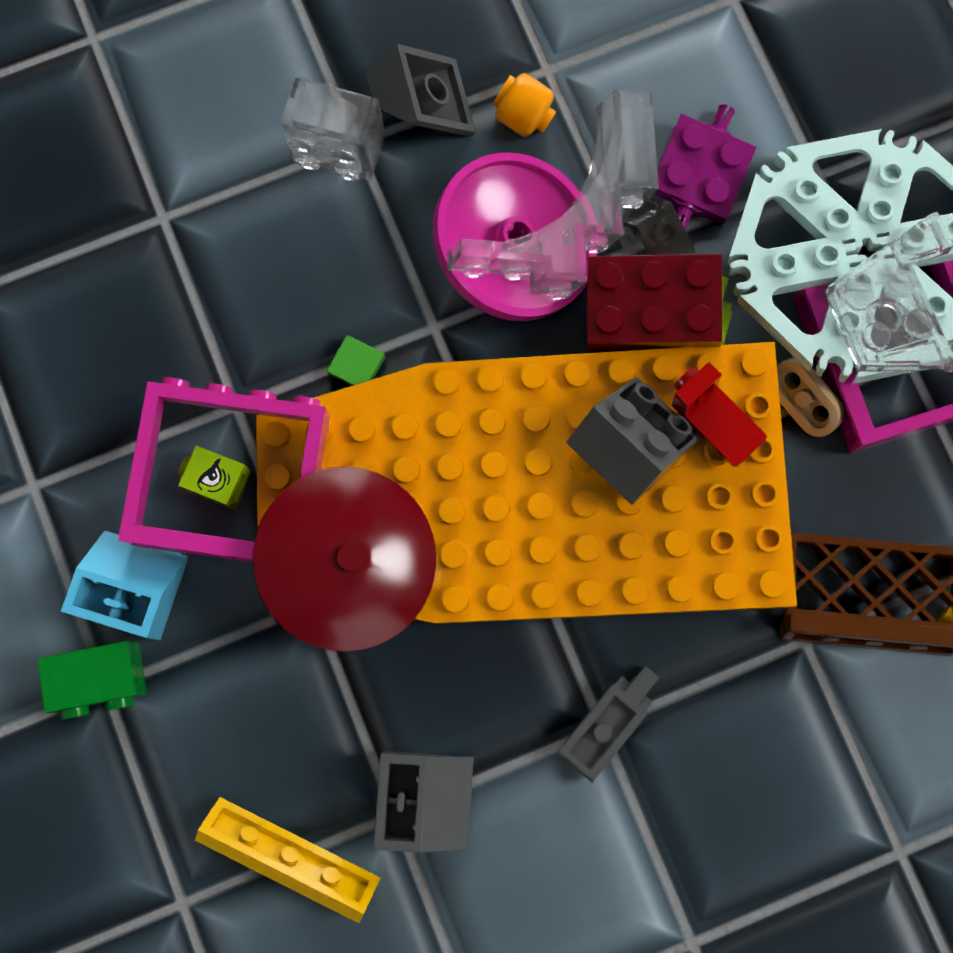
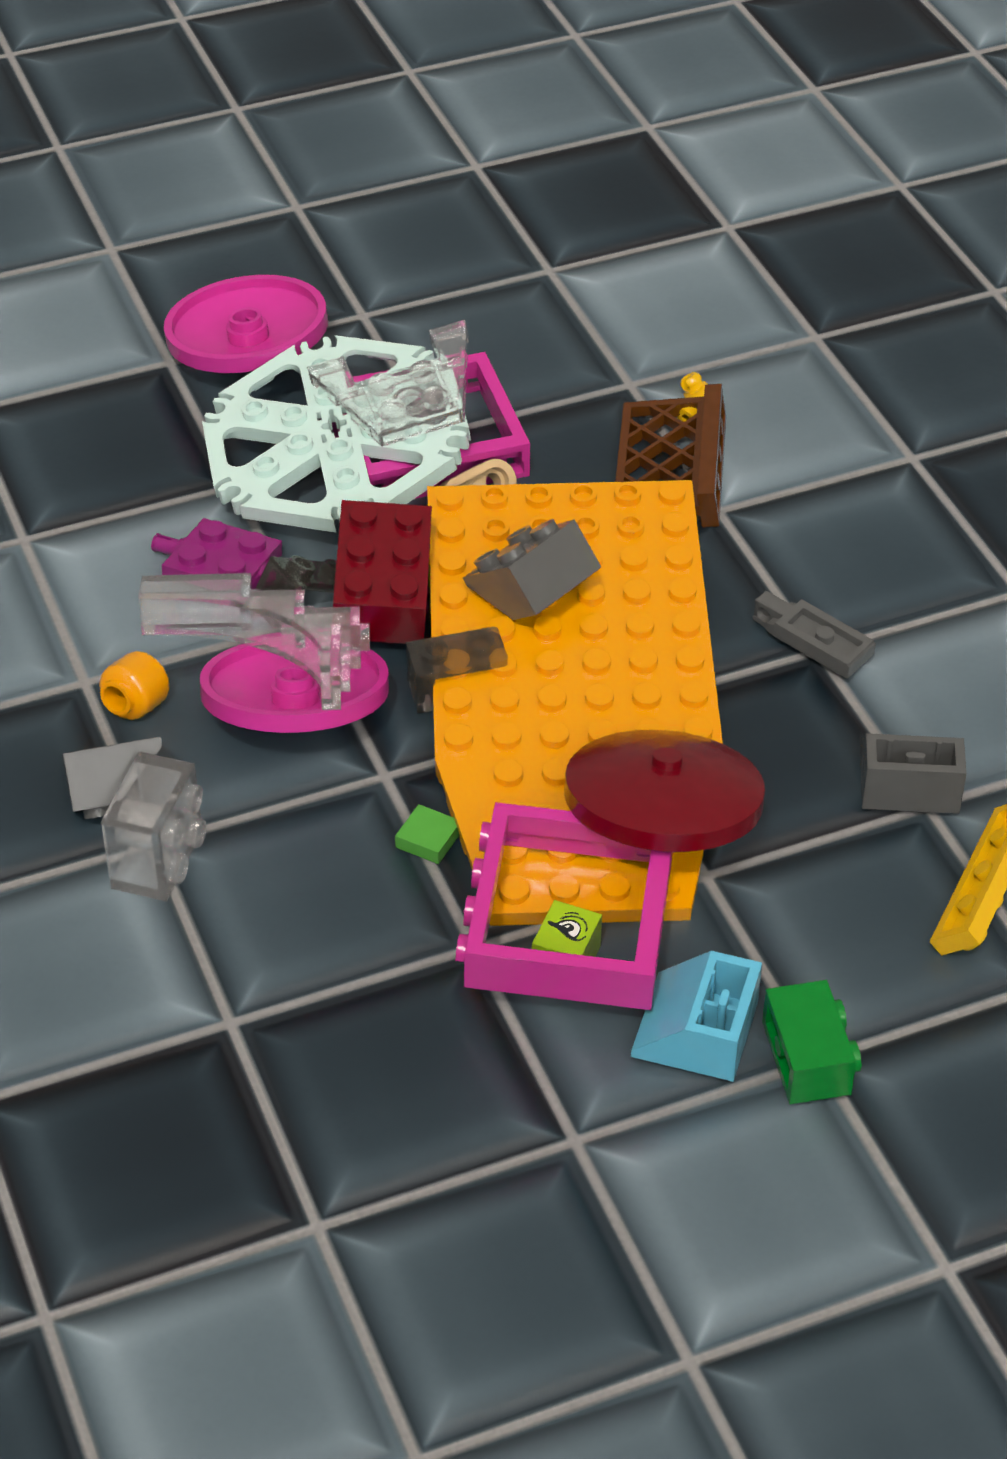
camera: 90 degrees left, 35 degrees down
(539, 375) = (449, 657): none -> clear smoke bracket
(716, 415) = (497, 517): red bracket -> none

